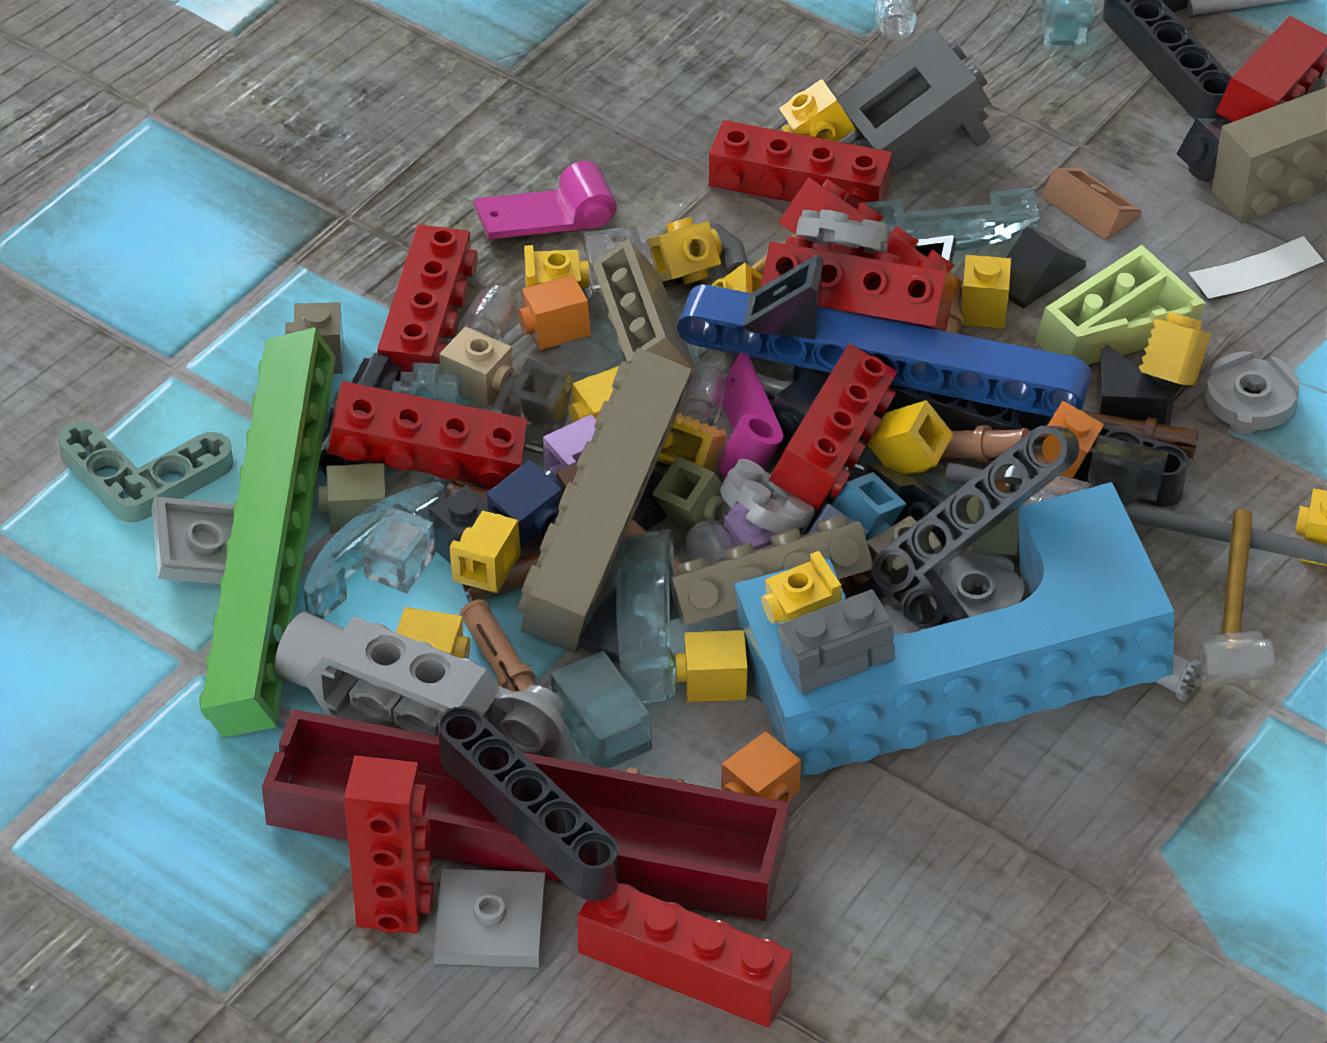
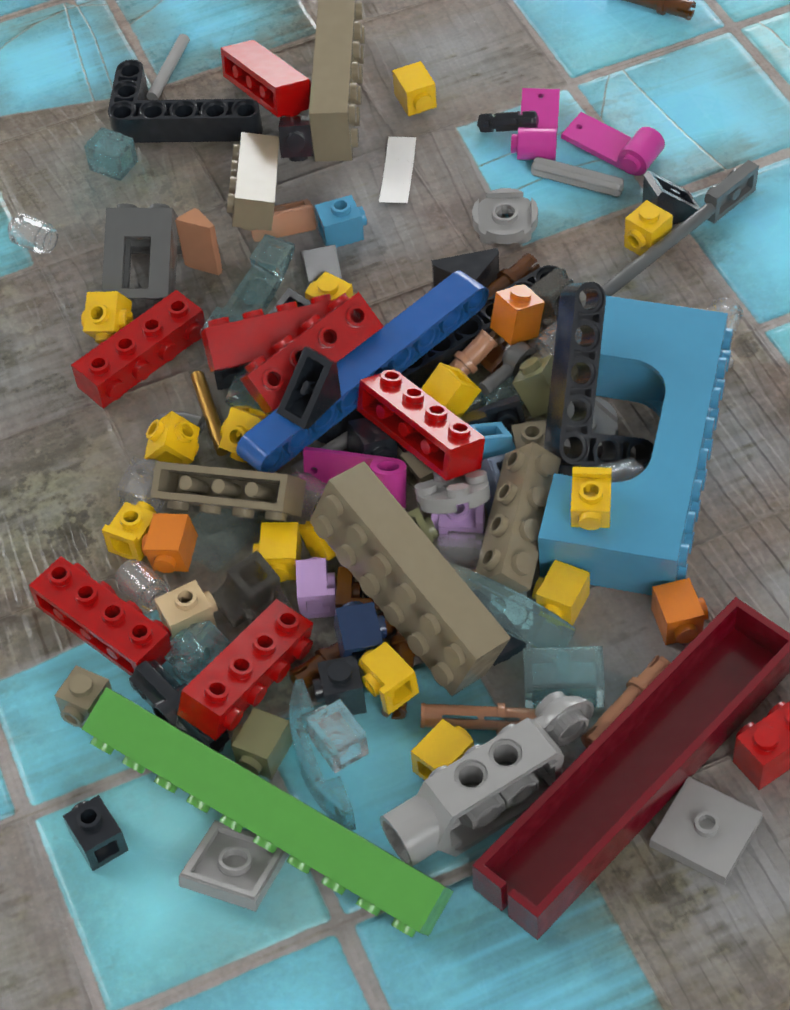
camera: 55 degrees left, 5 degrees up
(172, 416) = (95, 832): none -> black brick
(199, 459) = (139, 884): sand green beam -> none
(388, 844) = (663, 850): red brick -> none
(528, 803) = (652, 760): black beam -> none
(578, 204) = (65, 492): dark pink door -> none
(835, 228) = (277, 329): light grey plate -> none
(836, 641) = (648, 496): dark grey brick -> none
(977, 137) = (198, 242): none -> nougat slope
(1104, 141) = (253, 181): none -> dark tan brick
(1112, 239) = (340, 221): none -> dark azure brick
(1116, 308) = (399, 243): yellowish green wedge -> none
(1176, 349) = (464, 228): yellow brick -> none
(1236, 571) = (652, 282): pearl gold bar -> none

